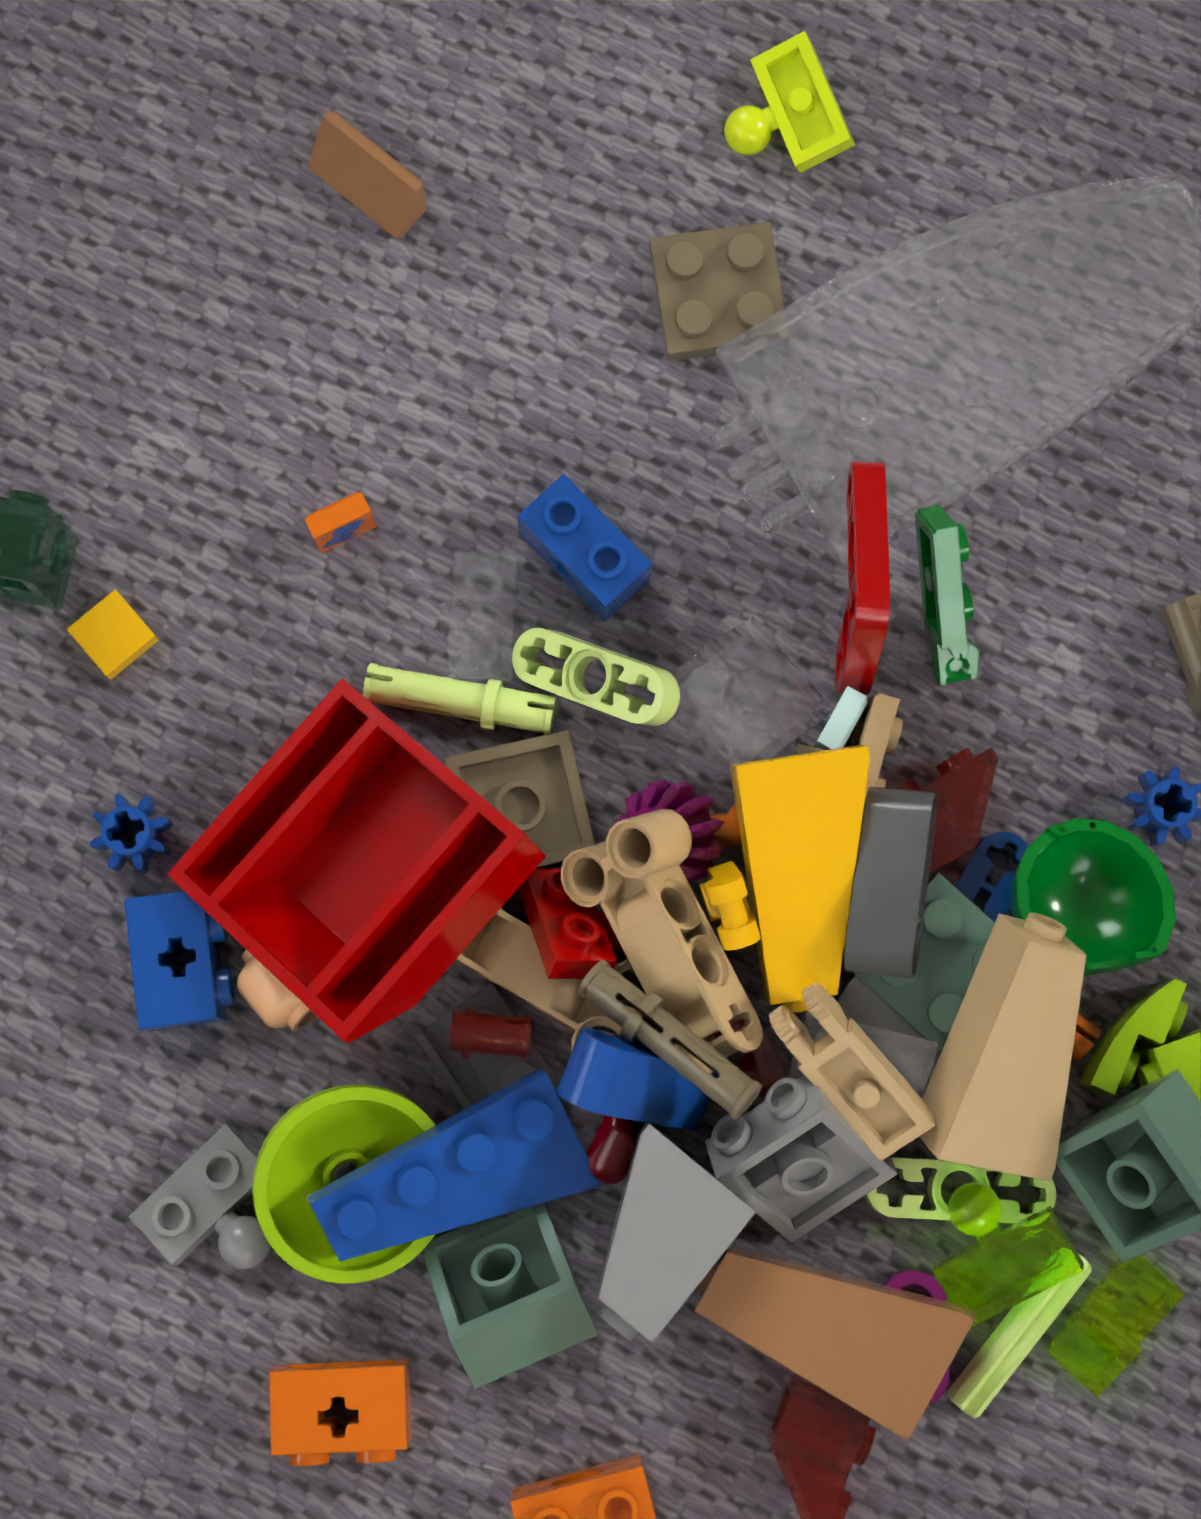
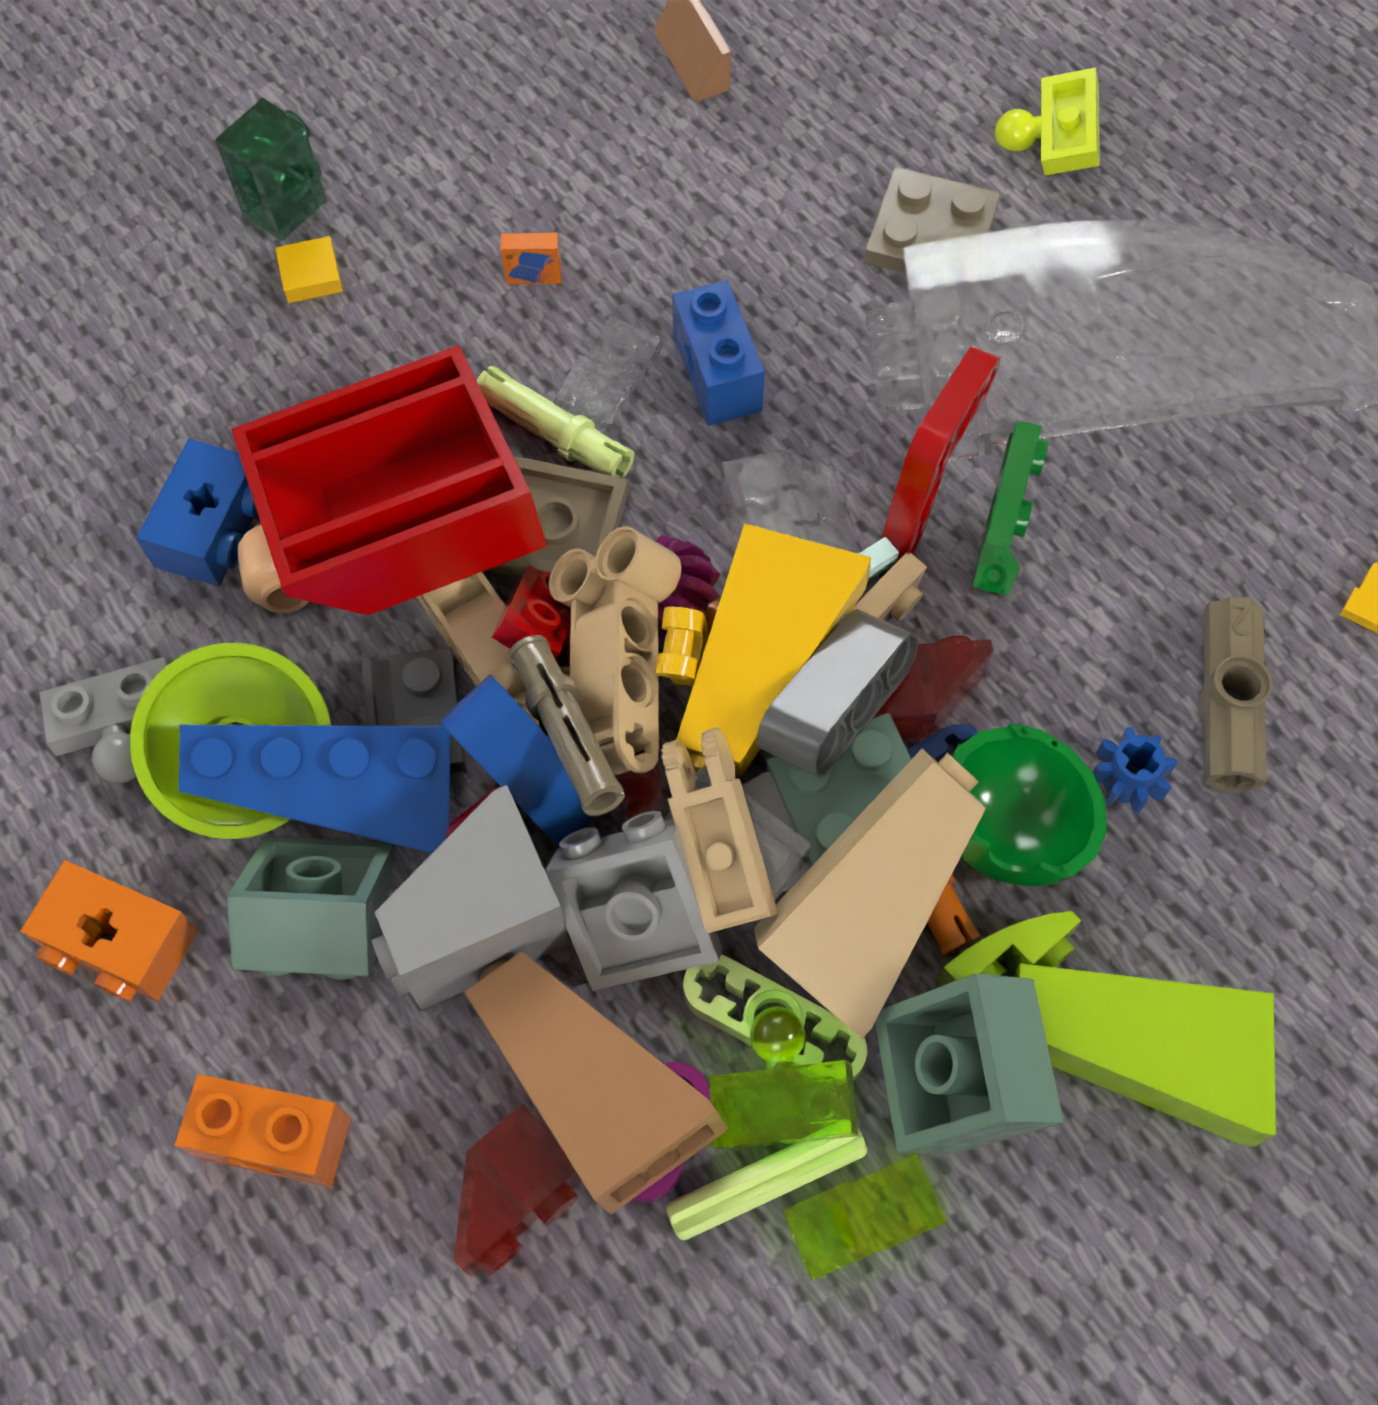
camera: 30 degrees right, 15 degrees down
(115, 825) = (227, 403): blue gear -> none
(490, 1034) = (427, 678): clear red pin -> none
(619, 671) = (678, 458): yellowish green beam -> none

